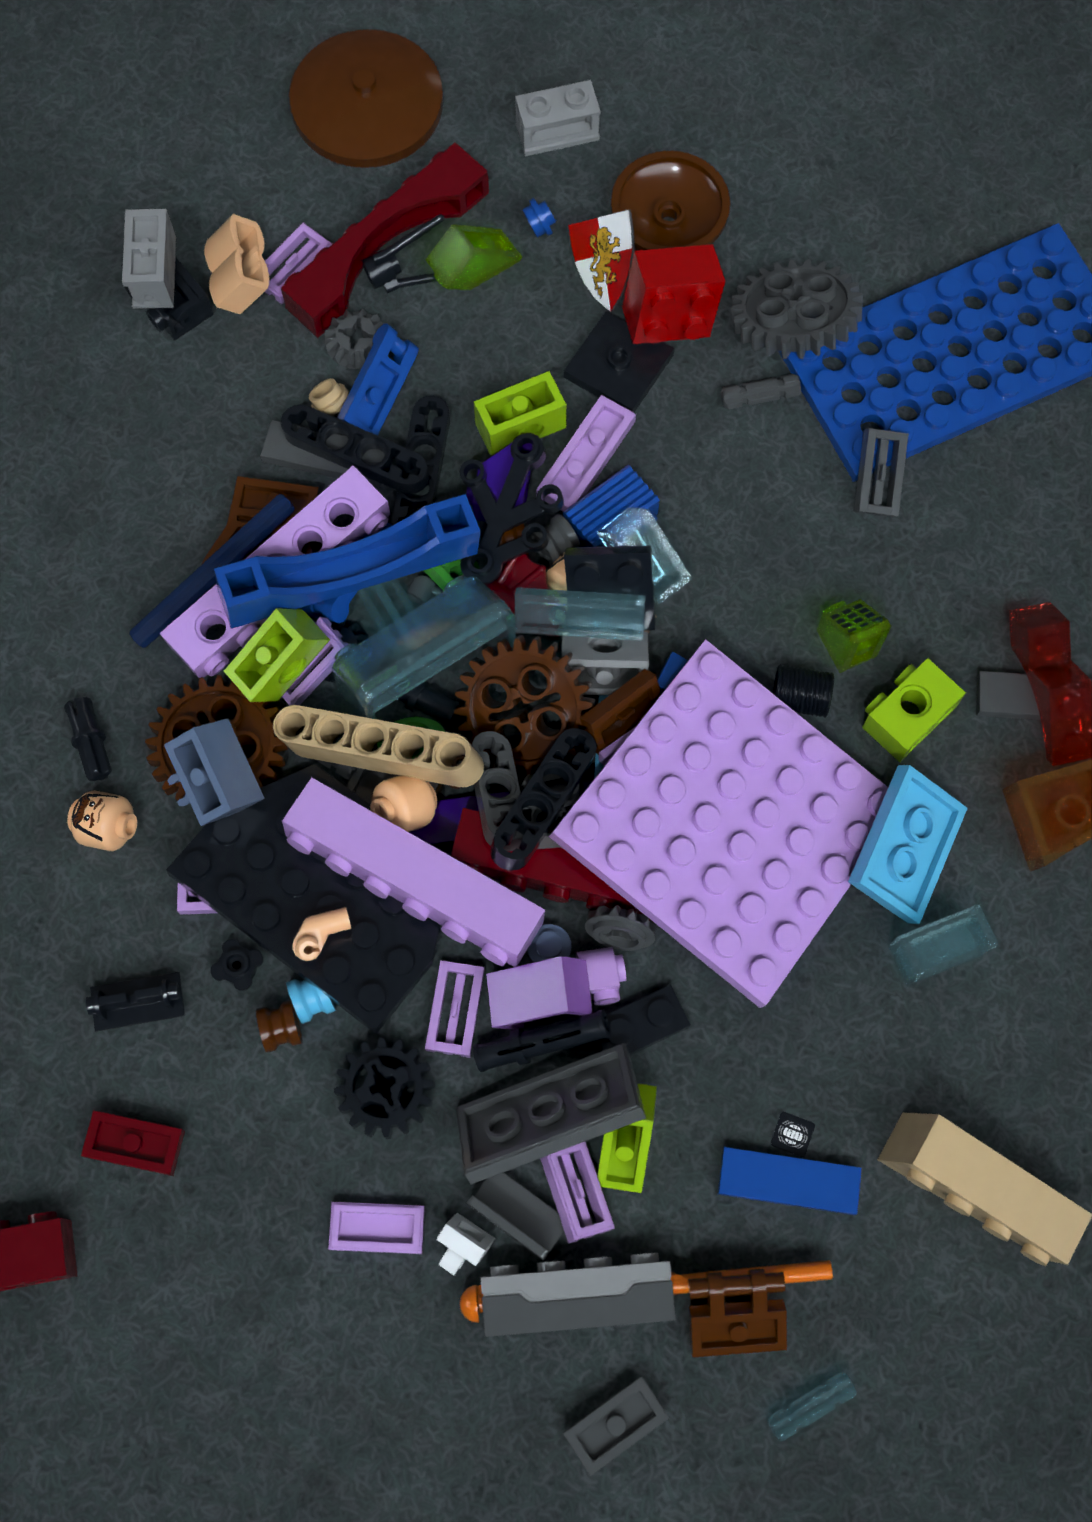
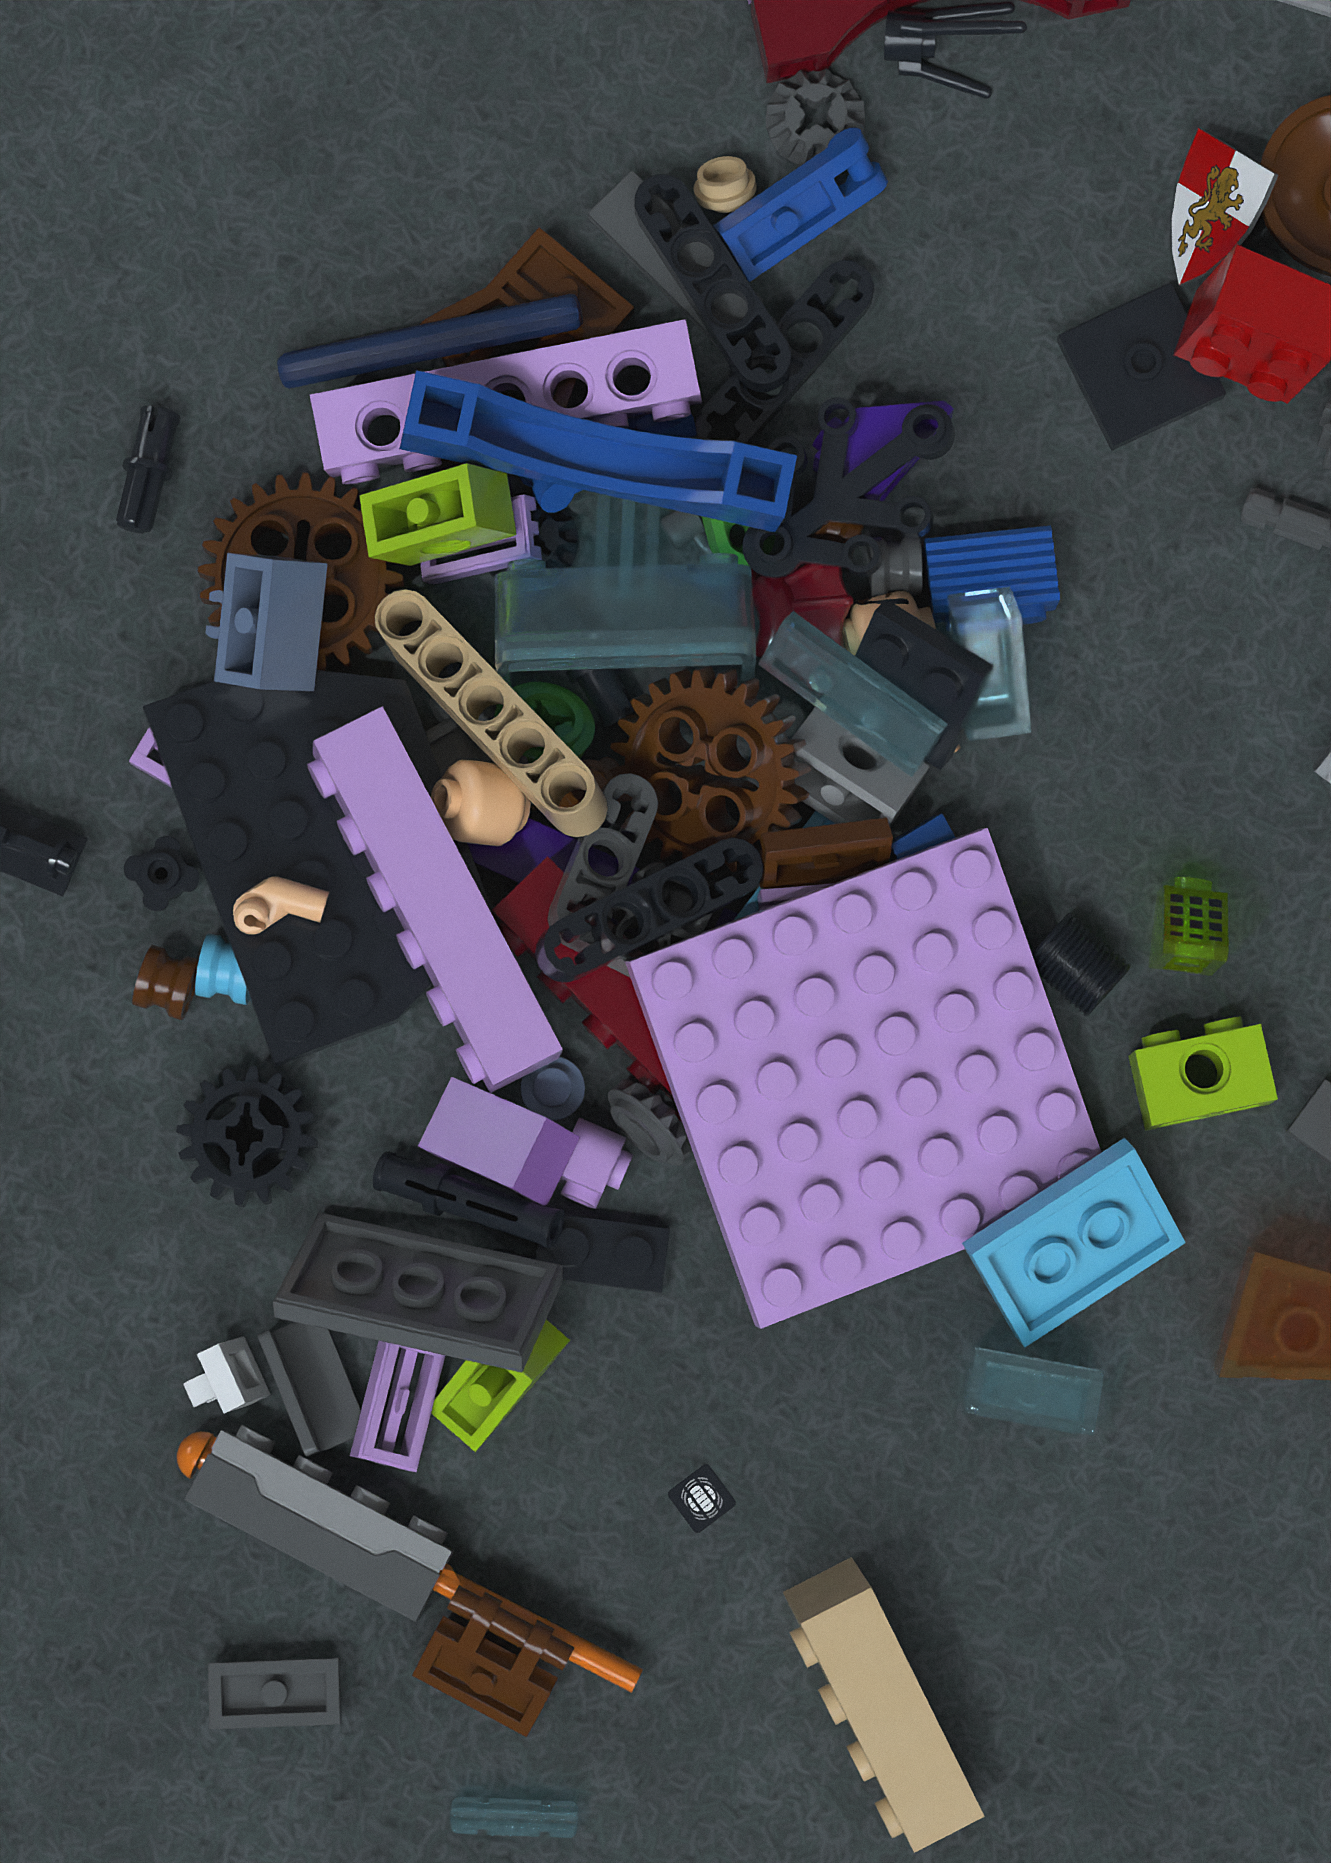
camera: 30 degrees right, 10 degrees up
(101, 820) = (103, 589): light nougat head -> none
(376, 1227) = (139, 1294): lavender tile -> none
(448, 1046) = (411, 1108): lavender tile -> none
(471, 256) = (1041, 95): clear neon green slope -> none
(523, 408) = (957, 366): lime brick -> none
(539, 217) = (1167, 91): blue plate -> none
(588, 451) = (1013, 471): lavender plate -> none
(789, 1181) = (659, 1550): blue tile -> none

